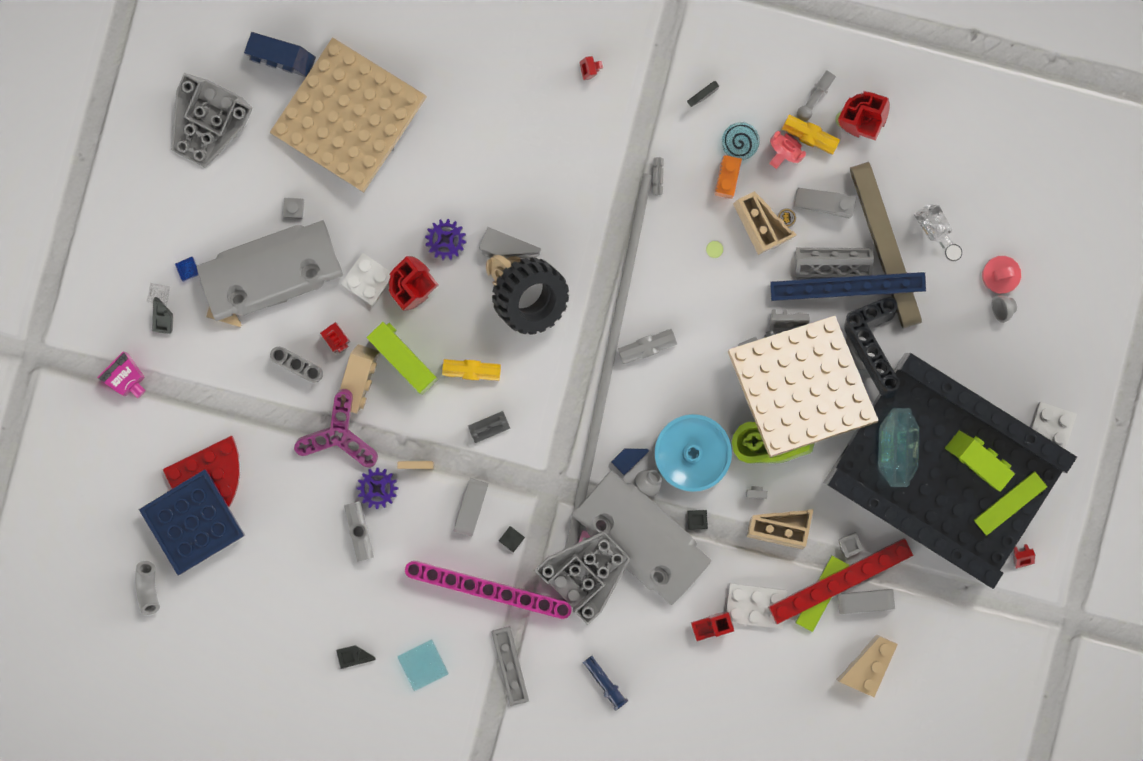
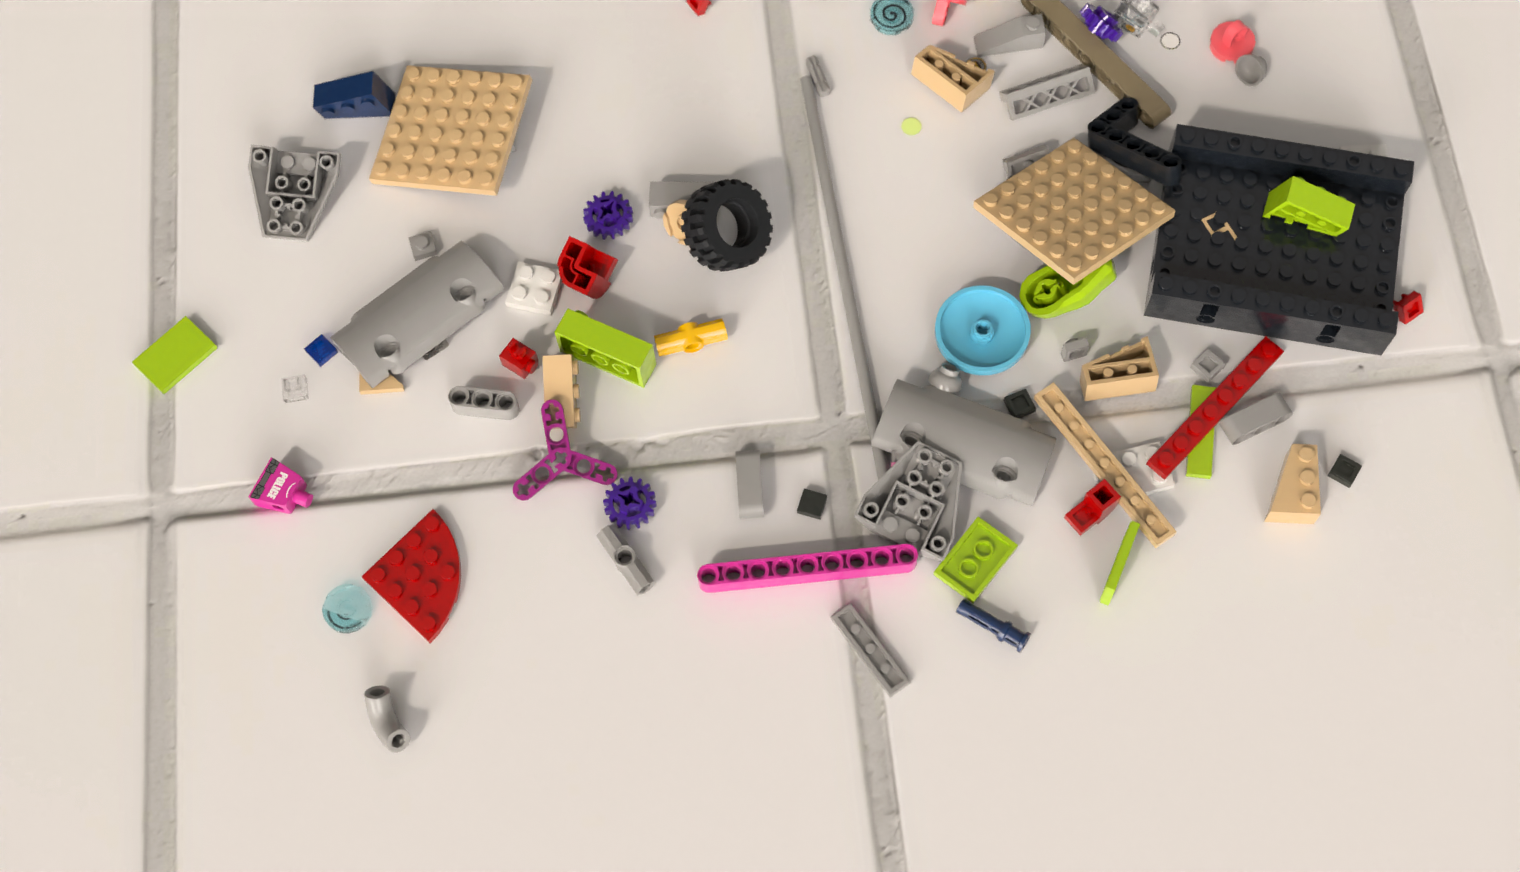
camera: 15 degrees left, 20 degrees down
(74, 229) = (174, 355): none -> lime tile
(151, 486) = (344, 615): none -> clear light blue tile
(162, 317) = (306, 408): pearl dark grey tile -> none
(191, 522) = (417, 619): dark blue plate -> none
(353, 656) = (673, 710): pearl dark grey tile -> none
(415, 465) = (667, 459): tan tile -> none
(423, 665) = (763, 688): clear light blue tile -> none
(489, 427) = (735, 391): dark grey hinge -> none
(612, 629) = (975, 560): none -> lime plate
(628, 458) = (911, 366): dark blue tile -> none
(647, 346) = (880, 243): light grey piece -> none
(713, 676) = (1119, 563): none -> lime tile
(728, 176) = (893, 48): orange brick -> none
(735, 597) = (1104, 464): none -> tan plate
(848, 286) = (1074, 102): dark blue plate -> none
(898, 447) = (1210, 224): clear light blue wedge -> none
(902, 222) = (1101, 22): none -> dark purple gear
(912, 664) = (1344, 470): none -> pearl dark grey tile
(1010, 503) = (1365, 244): lime tile -> none

